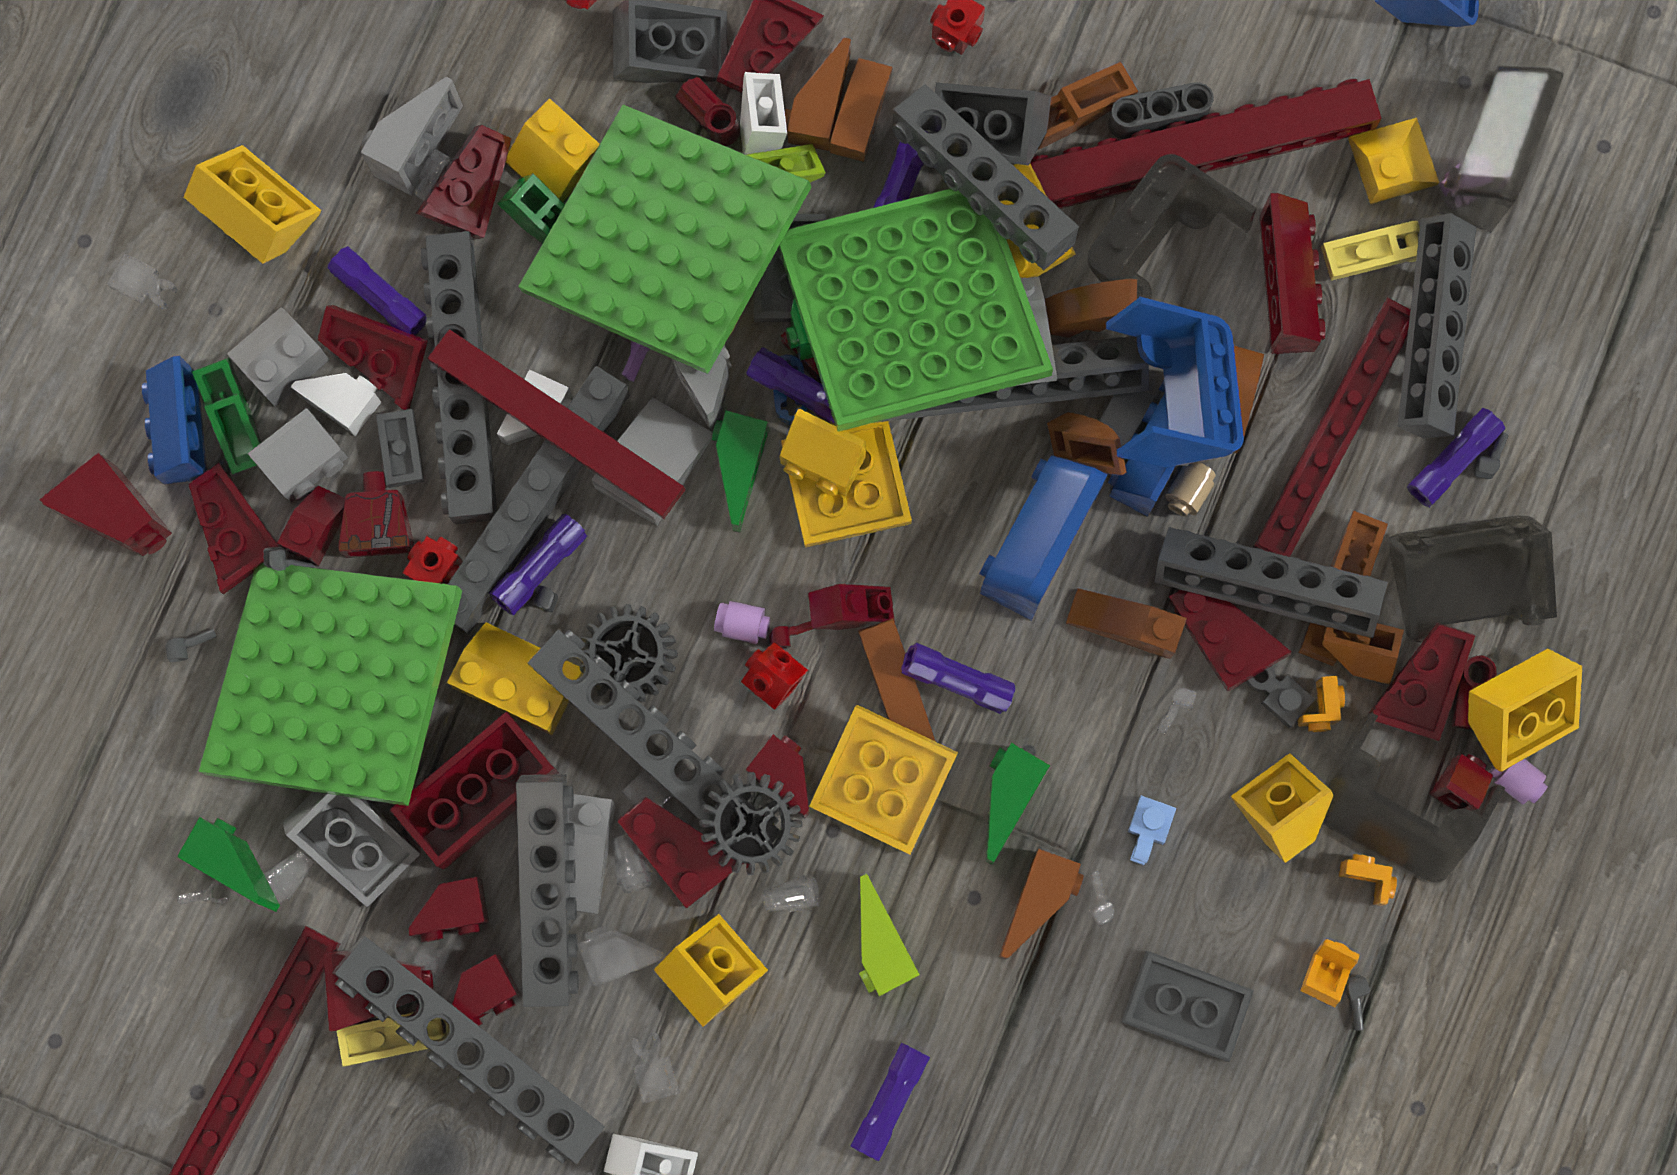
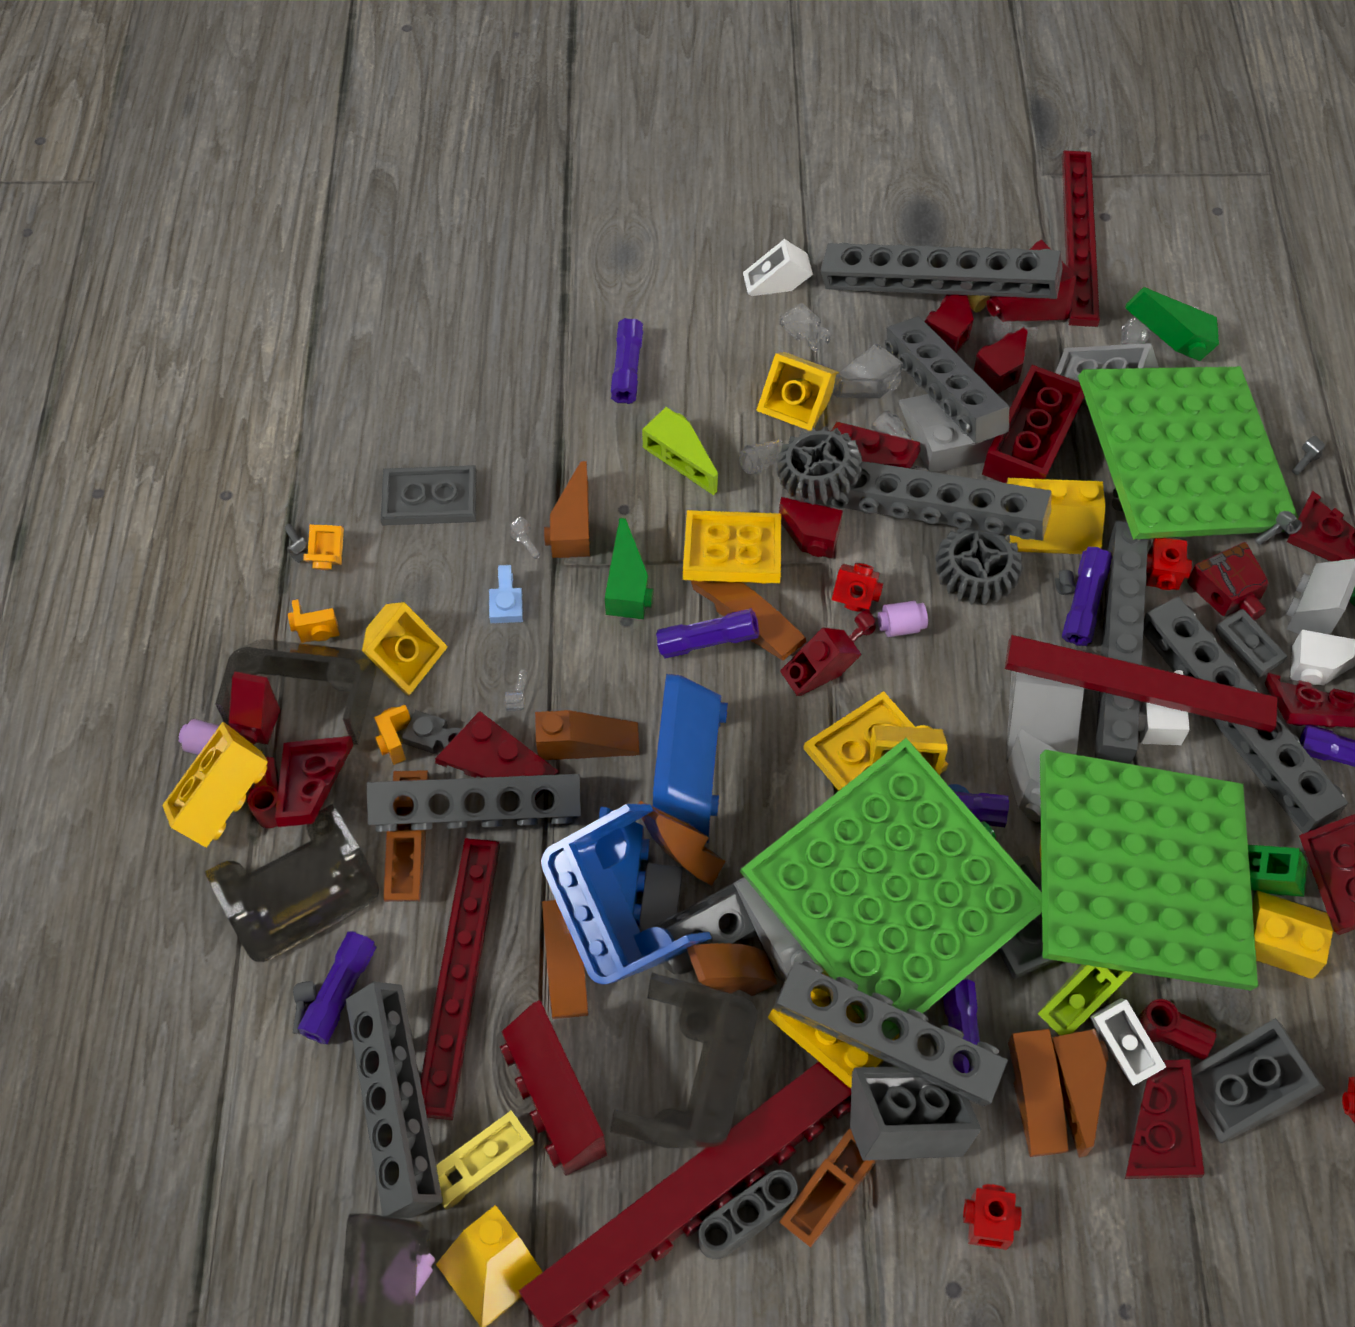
camera: 155 degrees right, 20 degrees down
(313, 525) = (1278, 557): dark red slope -> none
(739, 452) = (974, 735): green slope -> none
(1366, 656) = (354, 780): dark orange slope -> none

